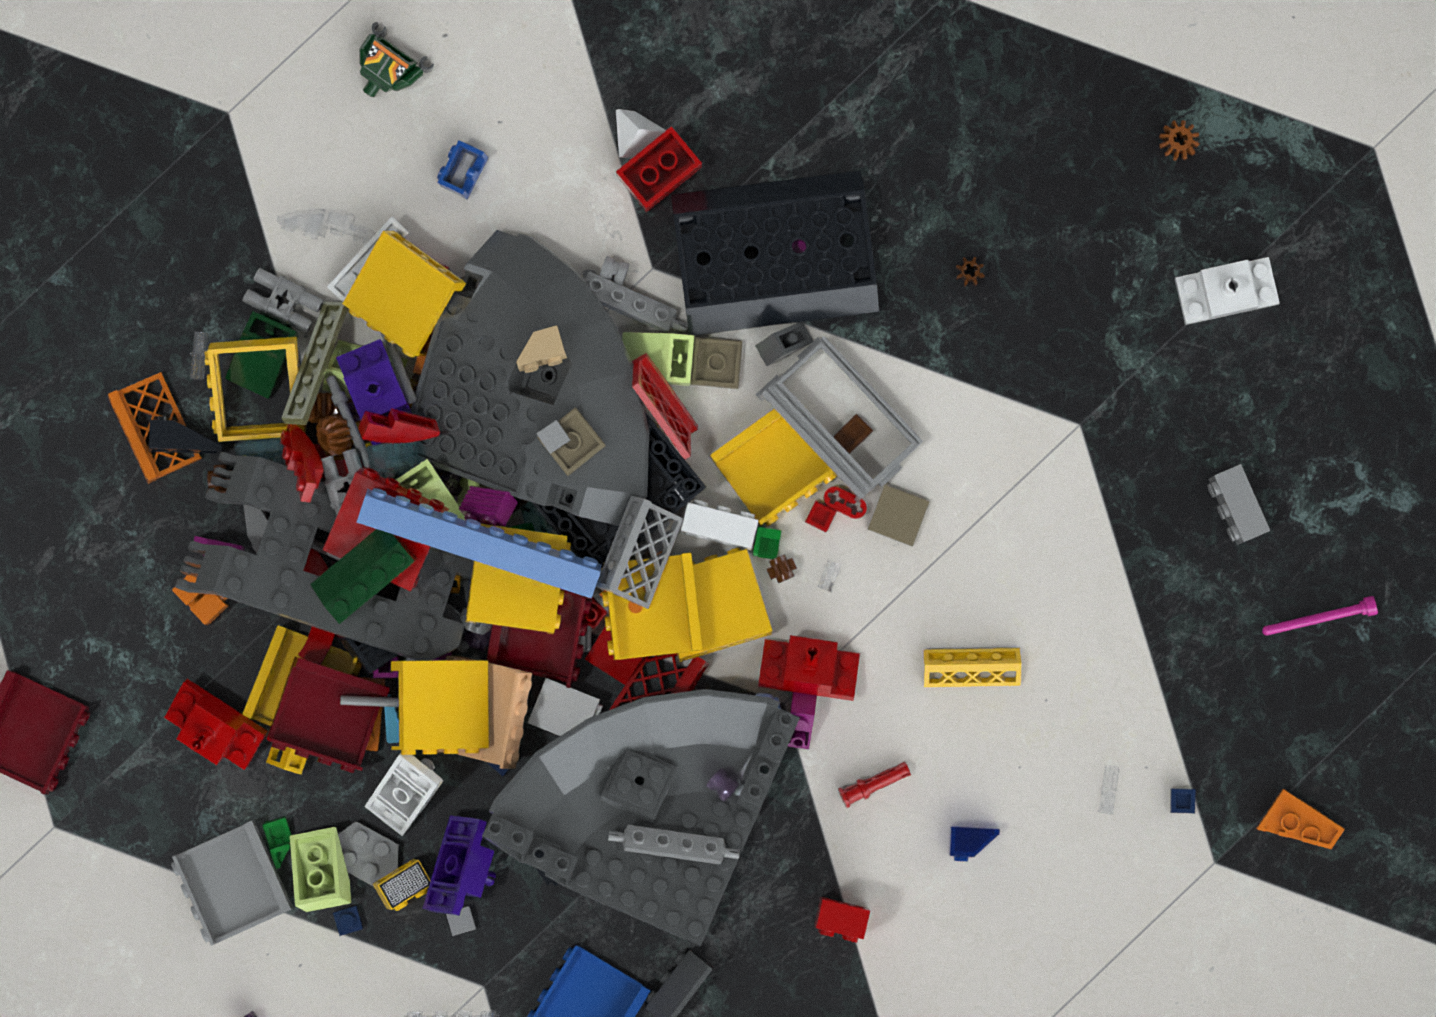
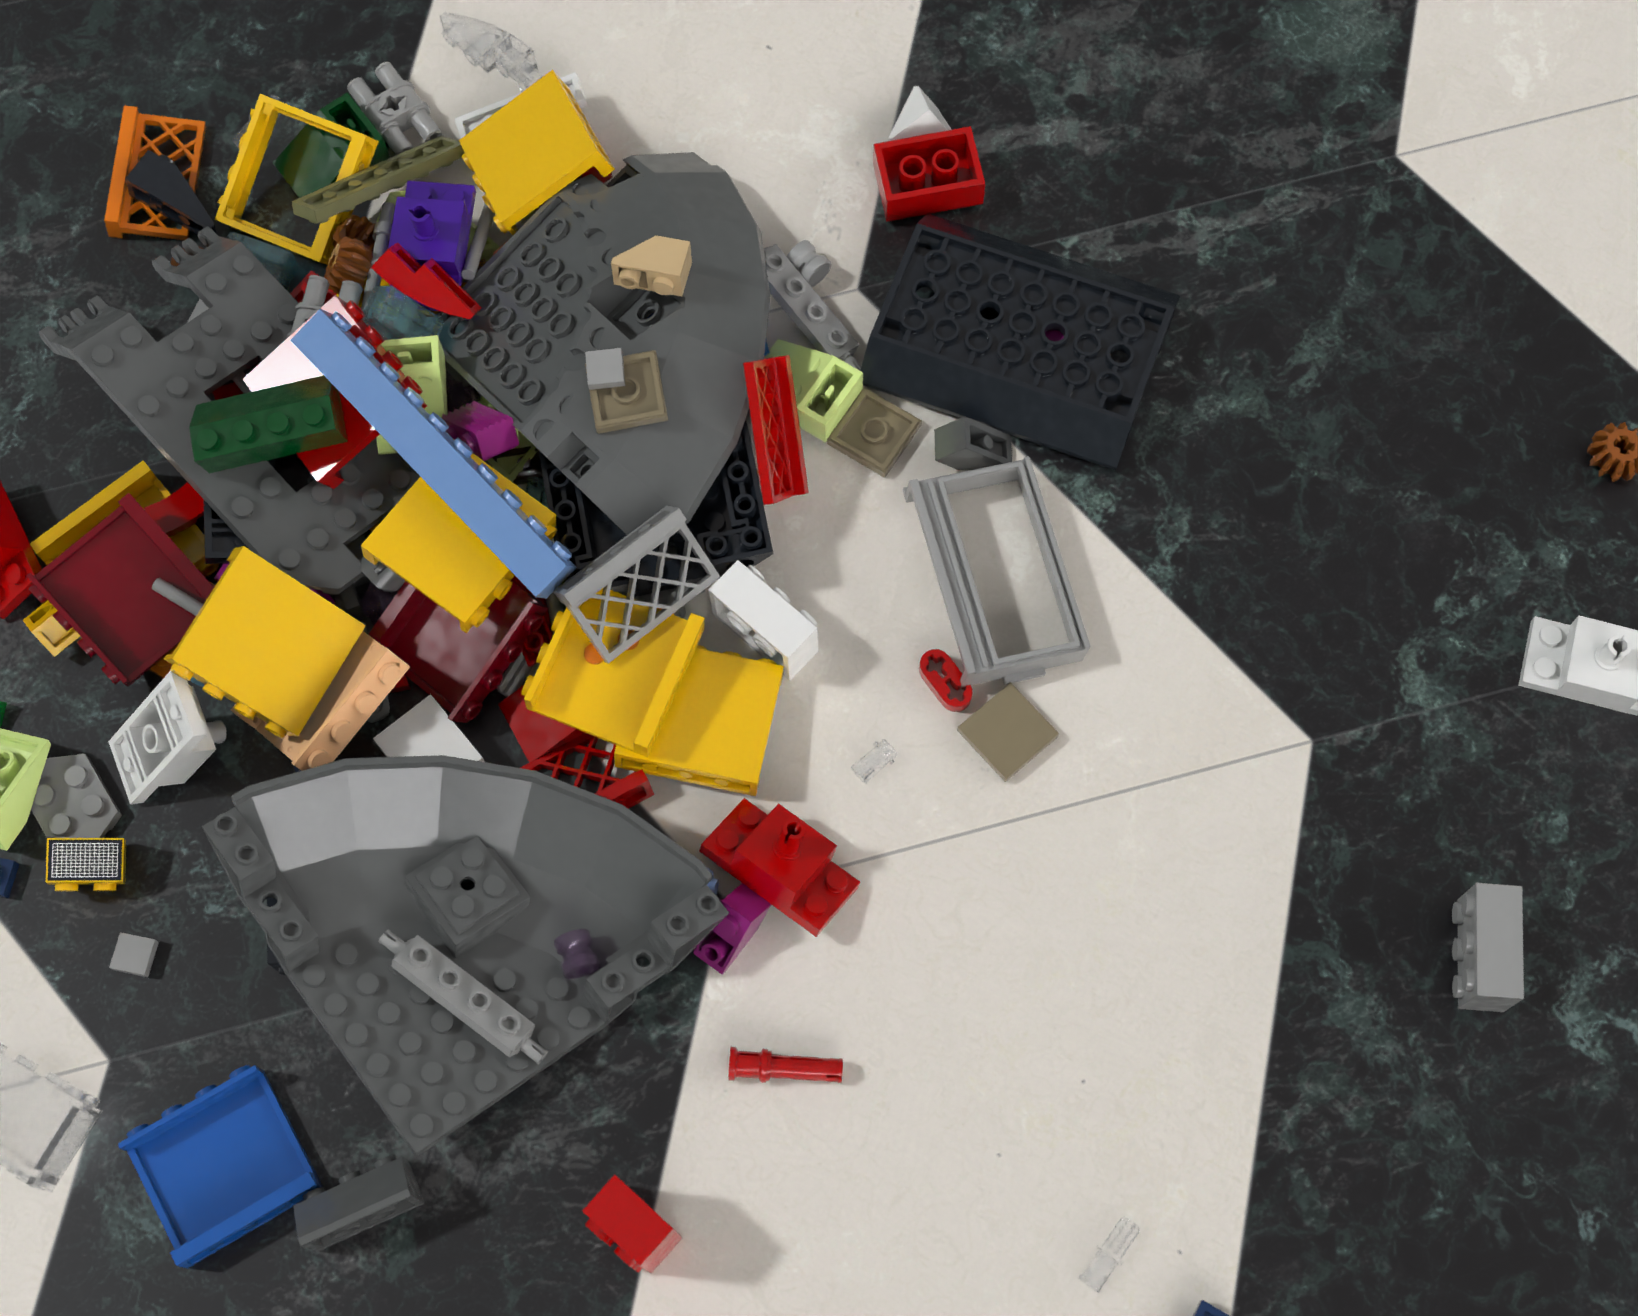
camera: 30 degrees right, 15 degrees down
(204, 606) = (78, 397): orange piece -> none
(302, 459) = (287, 272): red slope -> none
(460, 866) = (165, 880): dark purple brick -> none
(462, 169) = (693, 70): blue window -> none
(767, 543) = (815, 677): green panel -> none
(771, 467) = (874, 586): yellow panel -> none
(781, 568) = (816, 717): reddish brown gear -> none
(820, 516) = (904, 682): red tile -> none
(853, 434) = (1004, 601): reddish brown tile -> none
(969, 841) = (873, 1218): clear blue slope -> none
(972, 265) = (1268, 473): reddish brown gear -> none
(972, 663) = (1008, 970): yellow fence -> none
(1367, 606) = (1612, 1189): dark pink piece -> none

